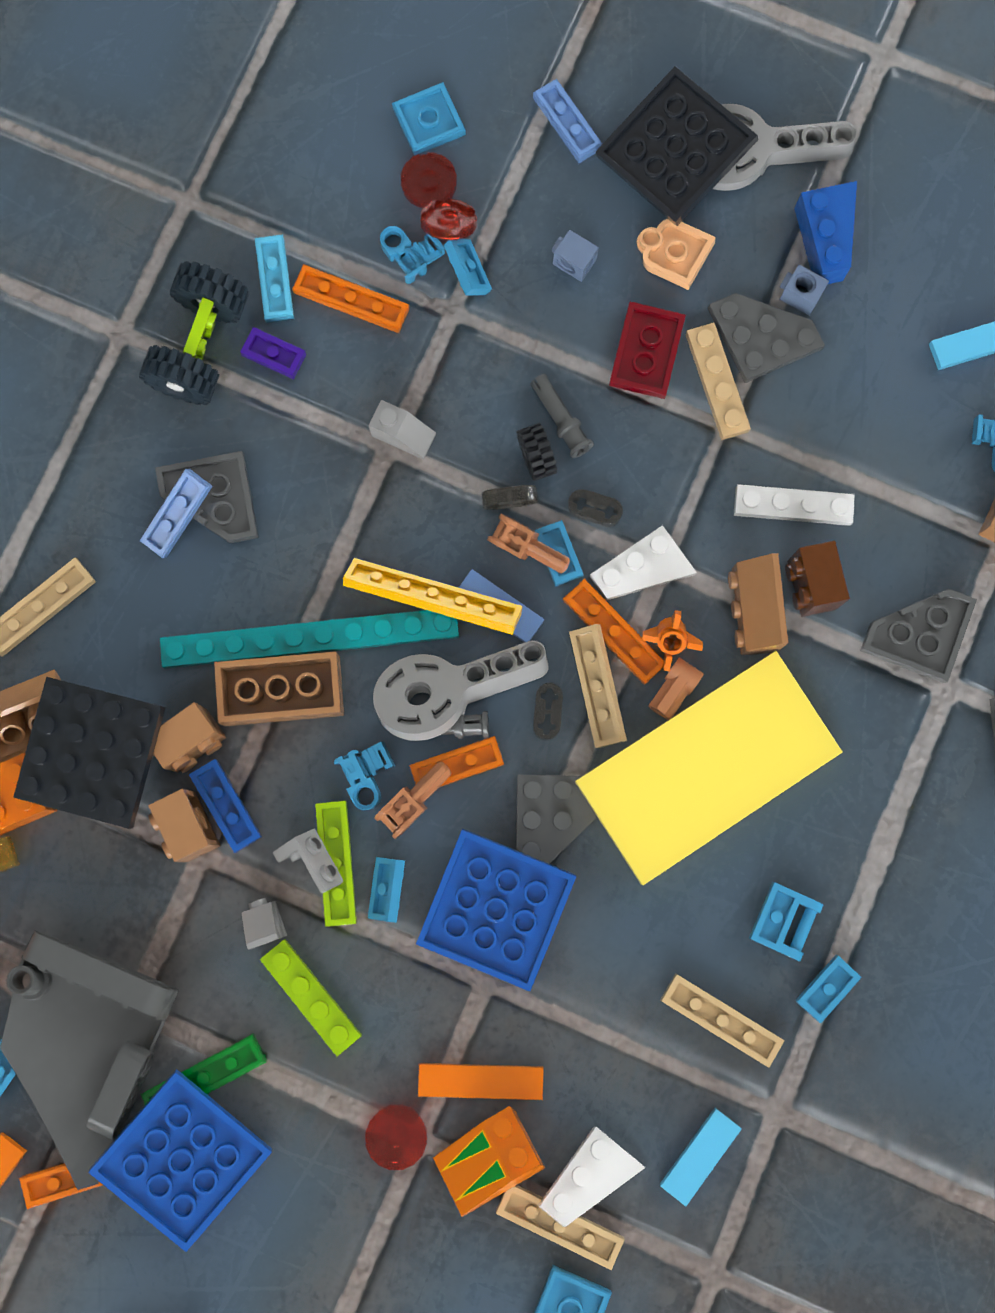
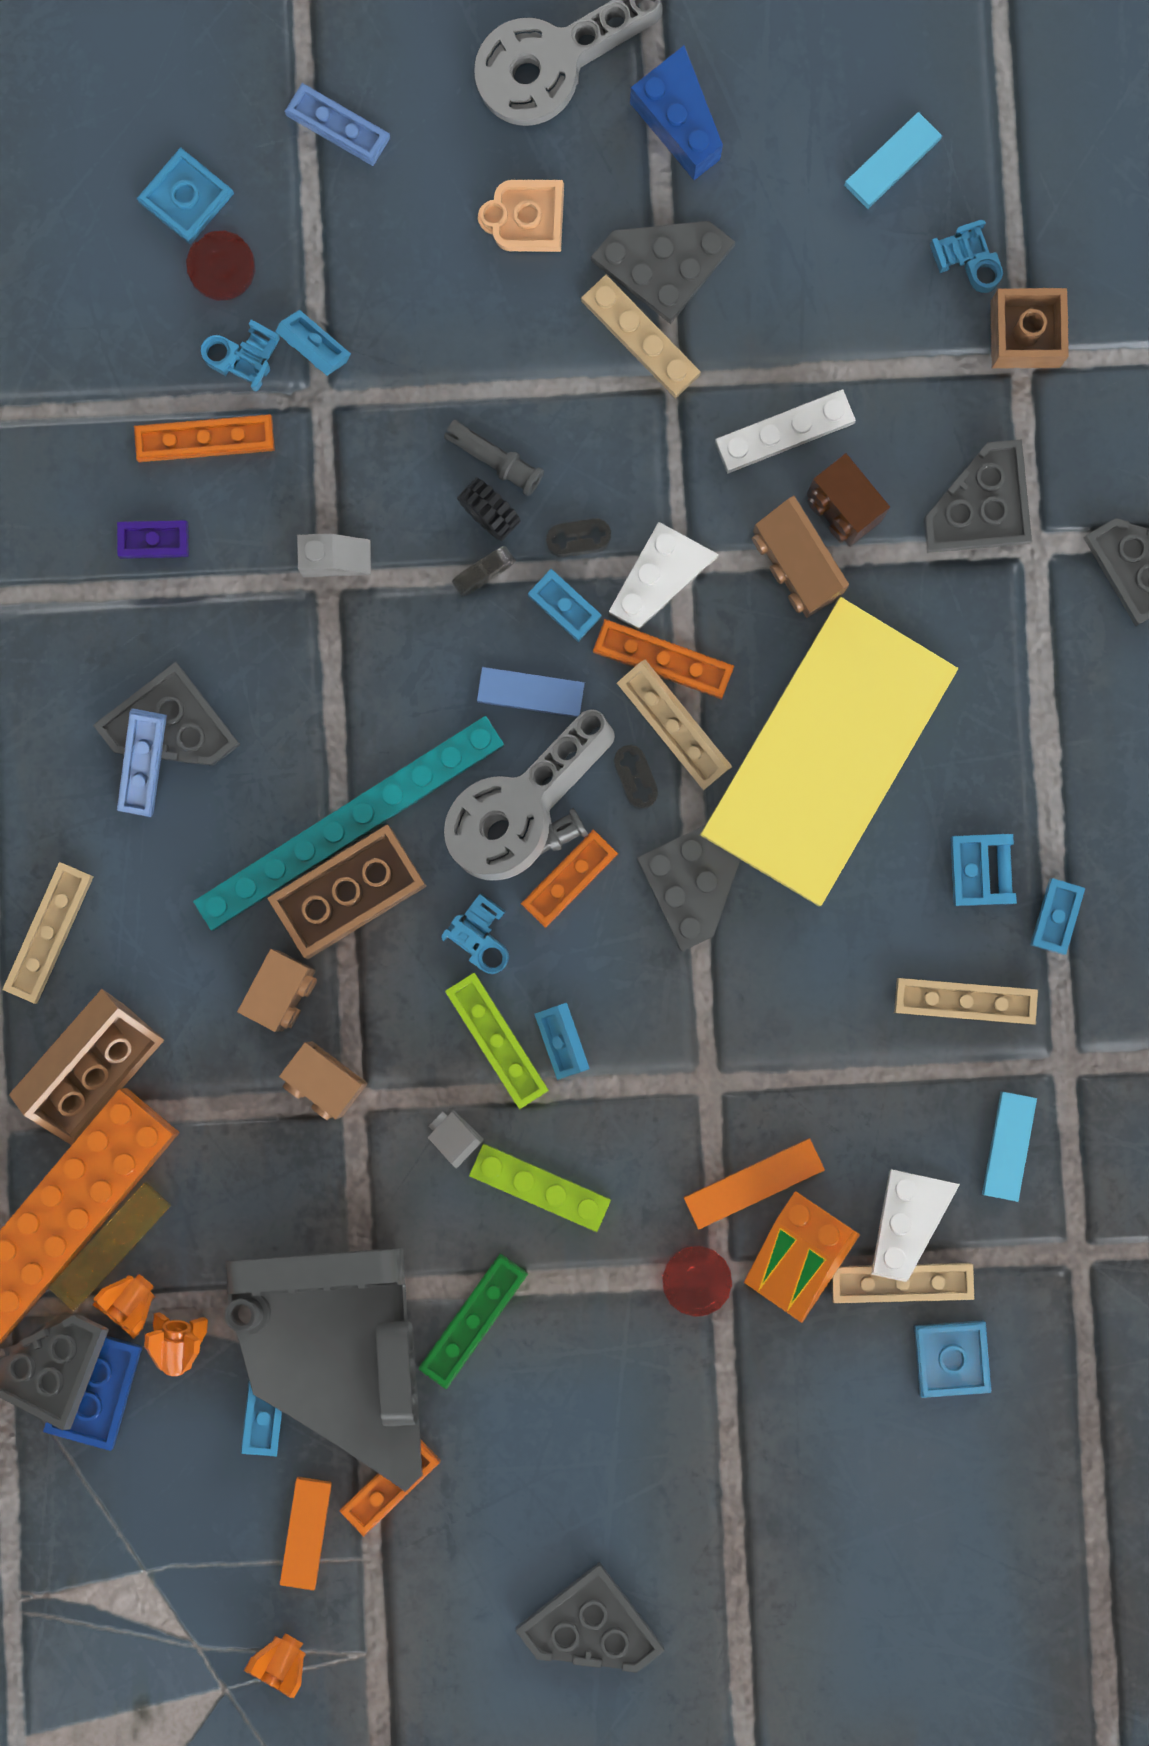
camera: 25 degrees left, 5 degrees up
(89, 752) = (189, 1053): black plate -> none
(180, 1160) = (493, 1410): blue plate -> none
(212, 298) = (61, 511): black plate -> none
(225, 805) = (352, 1039): blue plate -> none
(274, 278) = (110, 456): medium azure tile -> none
(315, 856) = (473, 1043): light grey bracket -> none
(409, 804) = (541, 942): nougat connector -> none
(433, 596) = (456, 716): yellow plate -> none
(448, 220) = (266, 300): clear red tile -> none
(496, 909) = (684, 1005): blue plate -> none
(523, 543) = (521, 612): nougat connector -> none
(574, 255) = (420, 273): sand blue brick -> none
(647, 350) = (550, 339): dark red plate -> none
(670, 643) = (726, 637): orange brick -> none
(676, 146) = (471, 99): black plate -> none
(678, 684) = (756, 681): nougat piece -> none
(811, 281) = (694, 181): sand blue brick -> none

